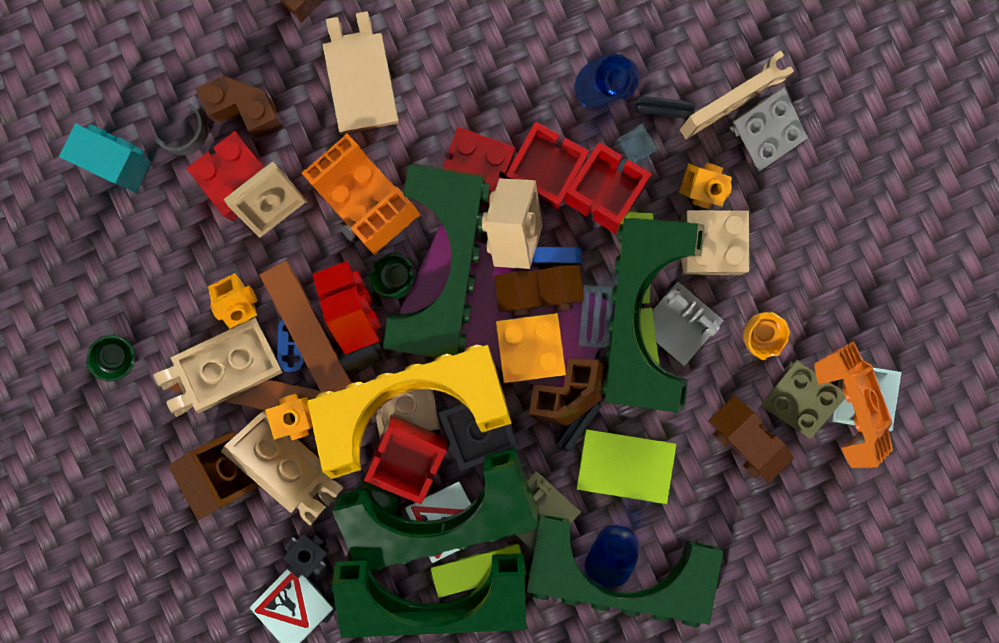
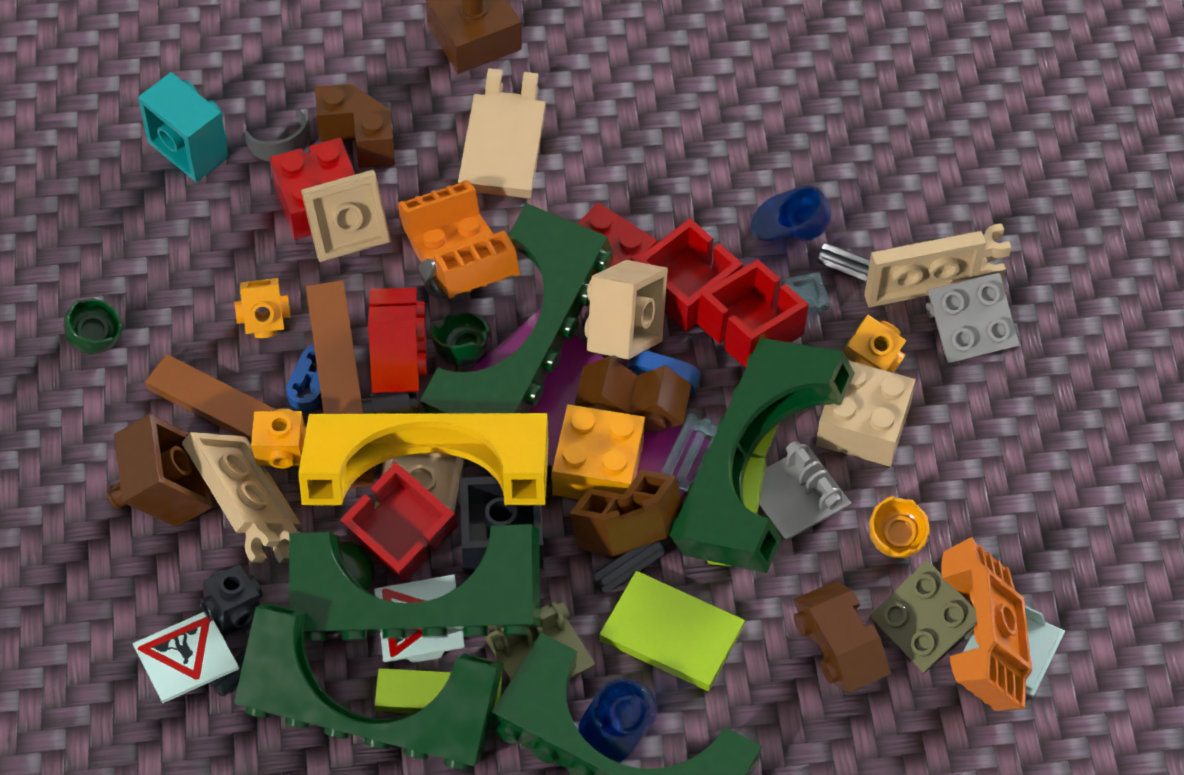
camera: 15 degrees right, 30 degrees down
(219, 368) = (213, 372): tan tile -> none

